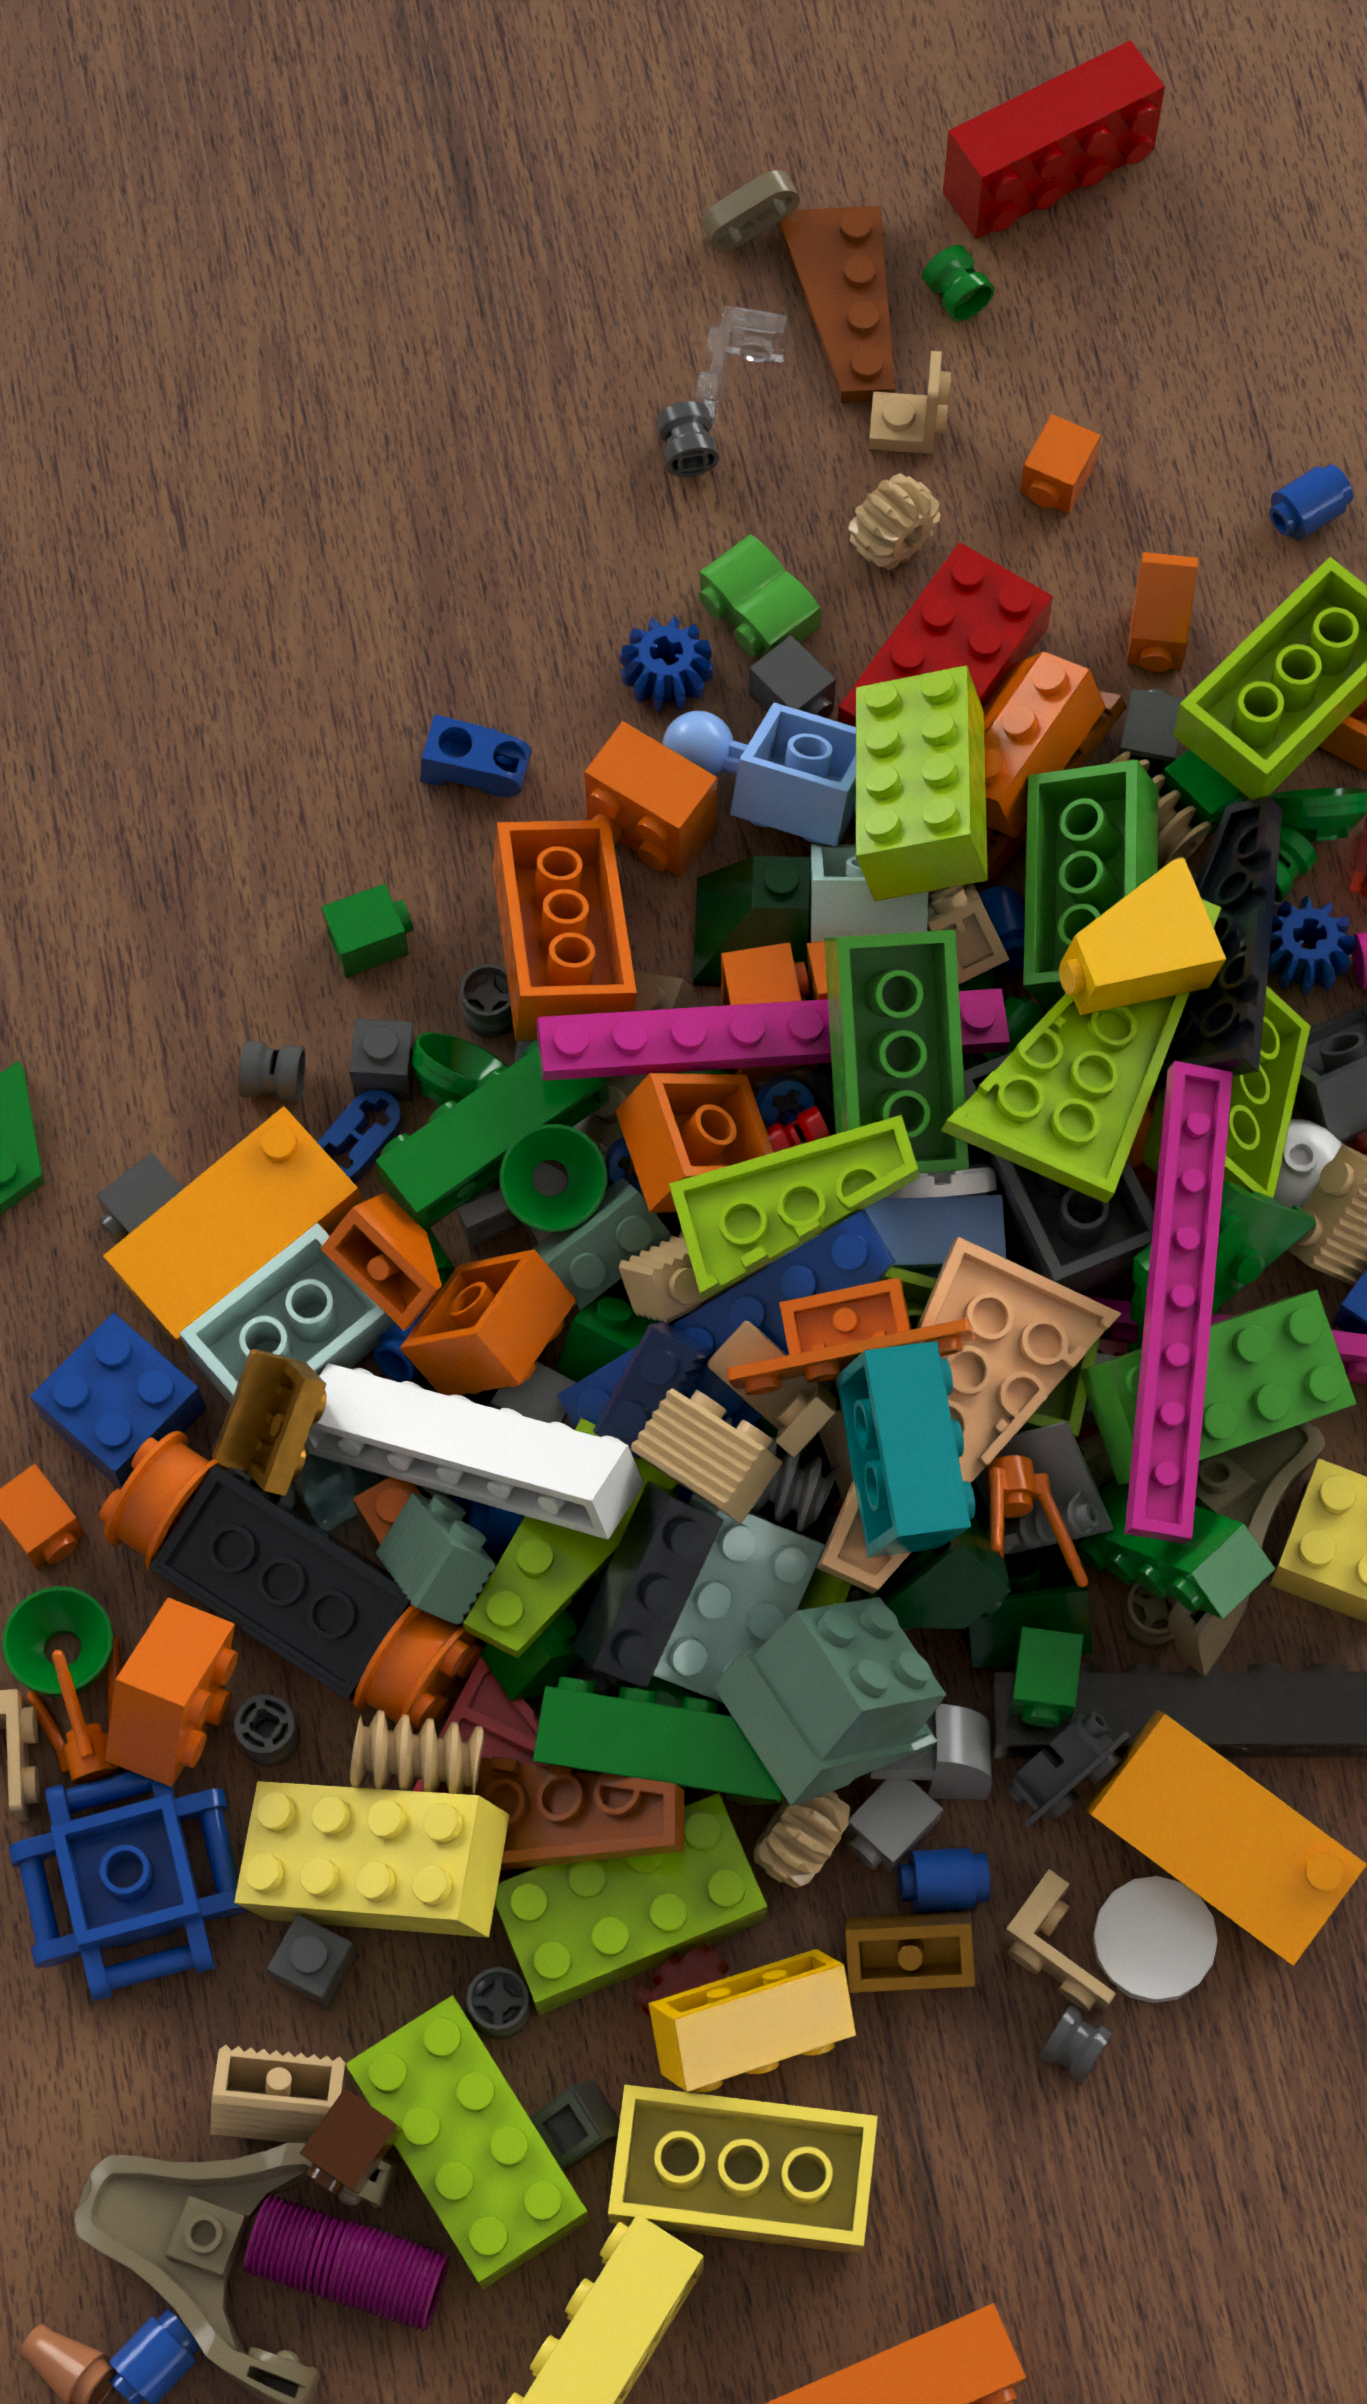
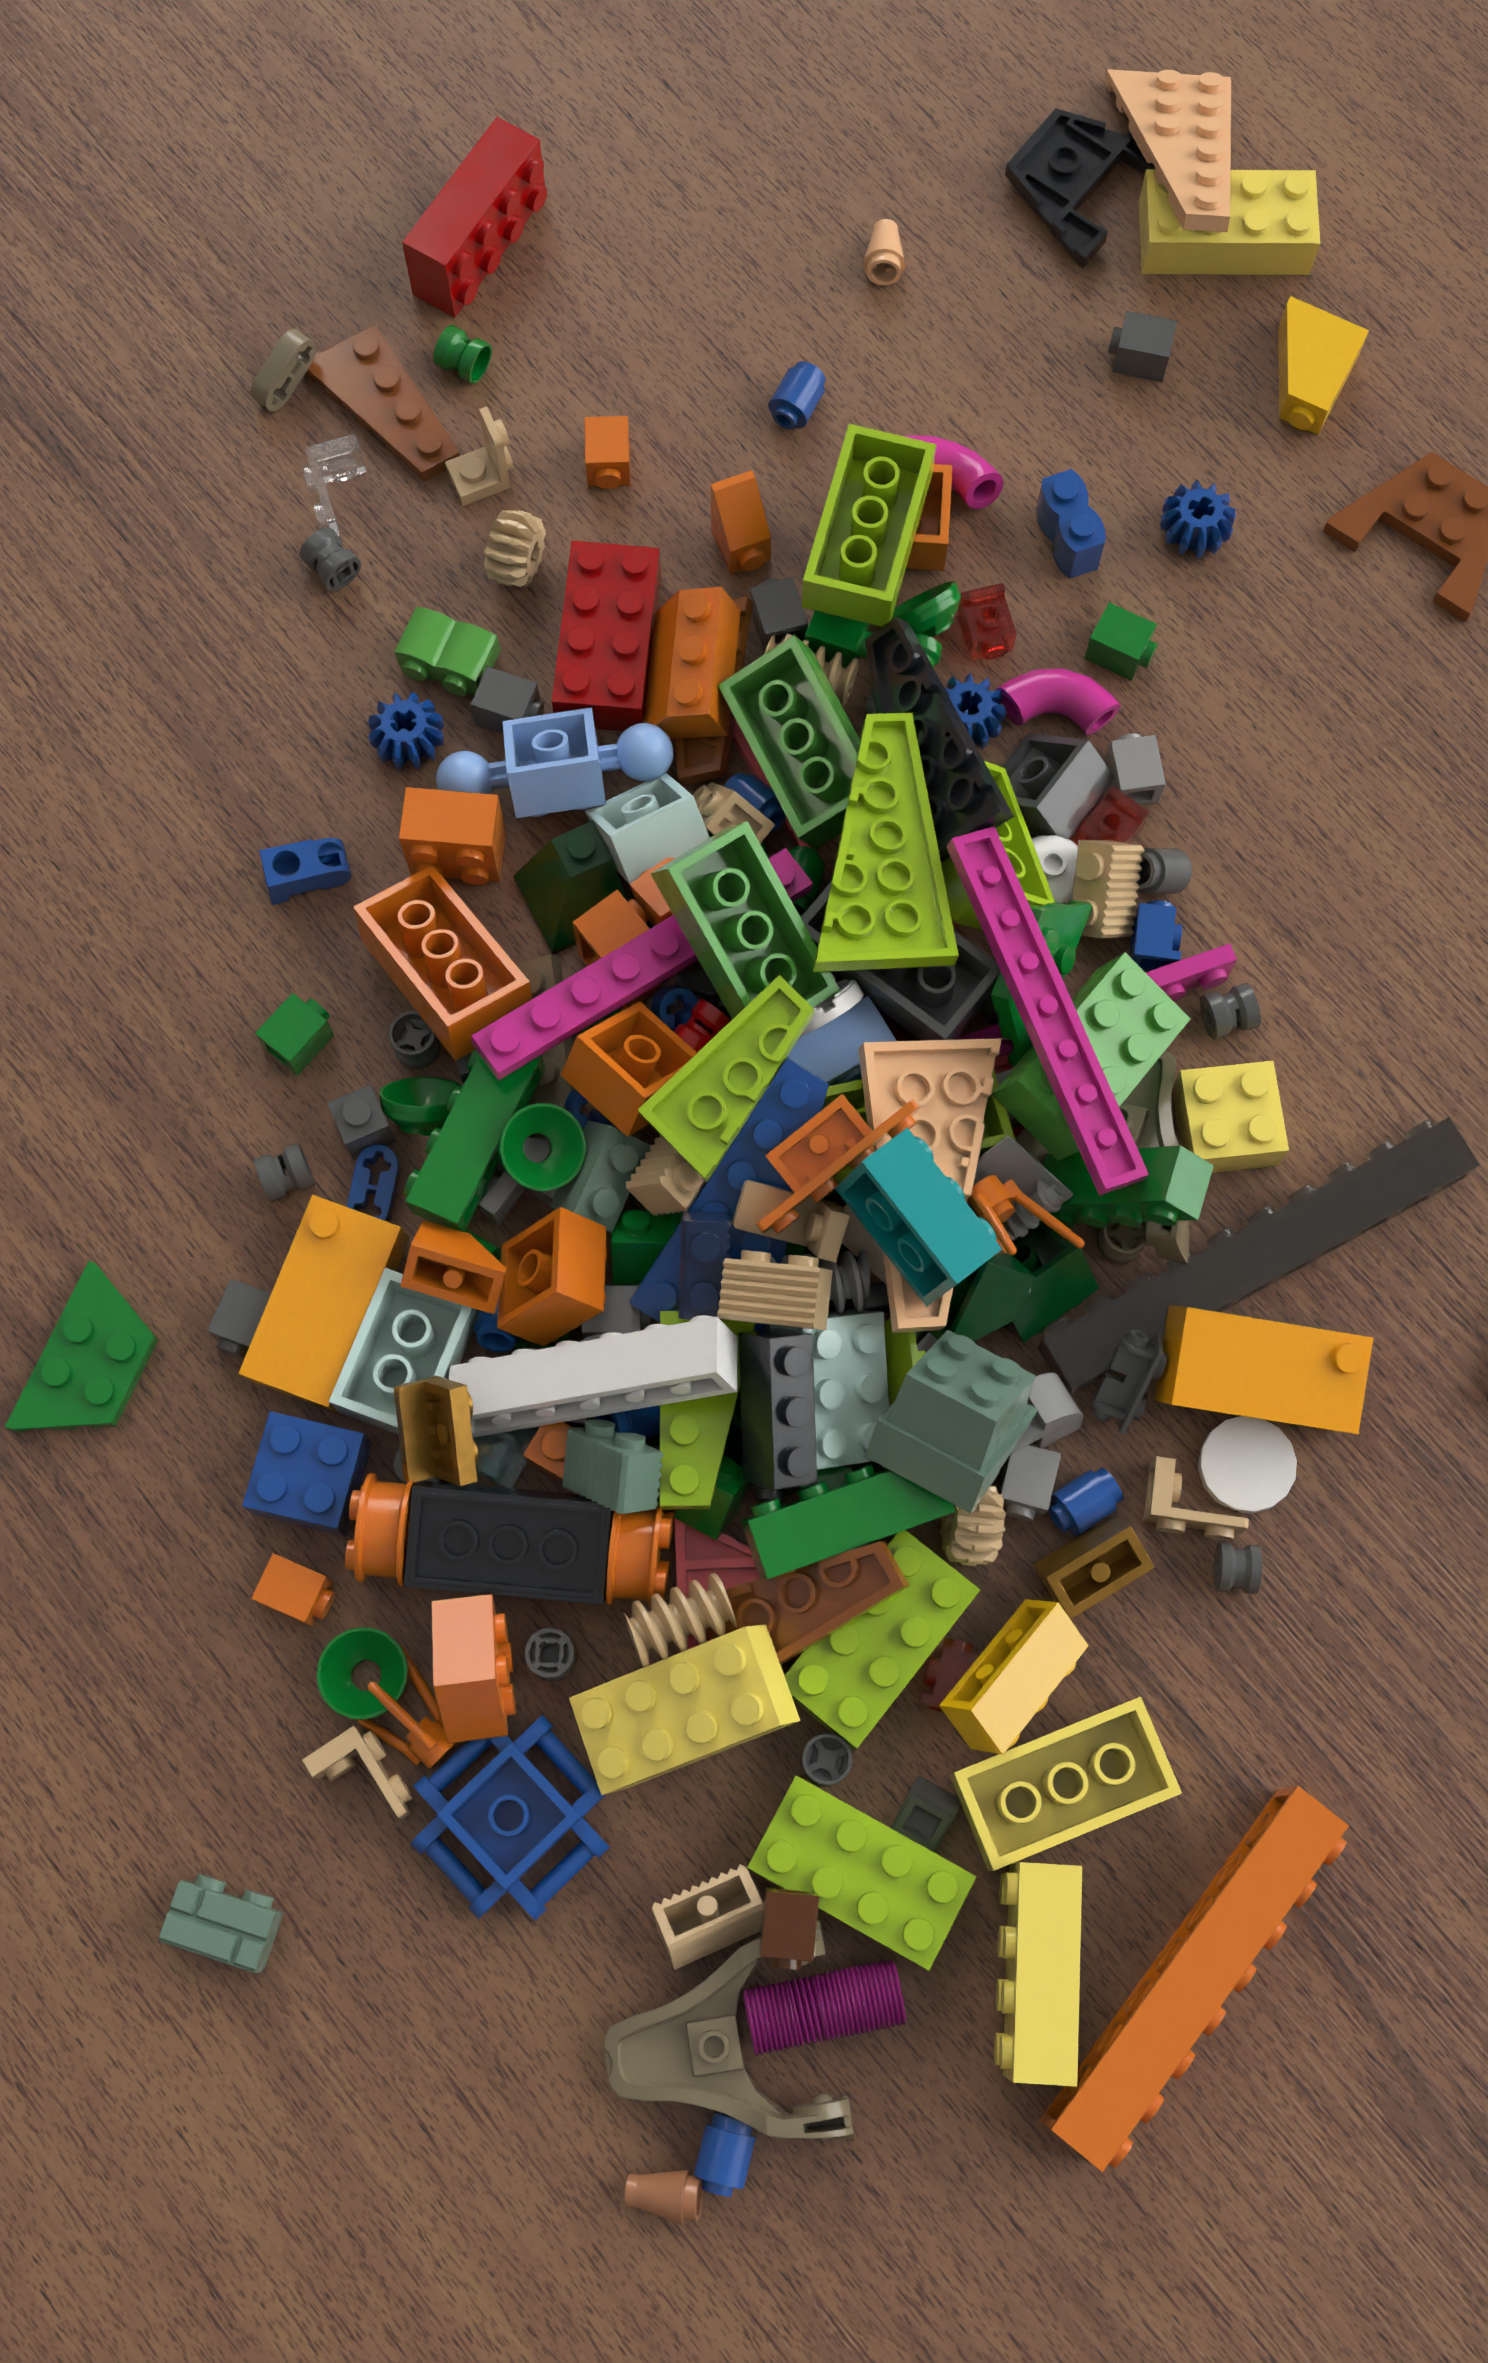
camera: 30 degrees left, 5 degrees up
(312, 1962) = (678, 1804): dark grey brick -> none
(920, 784) = (651, 728): lime brick -> none
(1046, 1676) = (1084, 1322): green brick -> none
(1144, 946) = (882, 766): yellow slope -> none

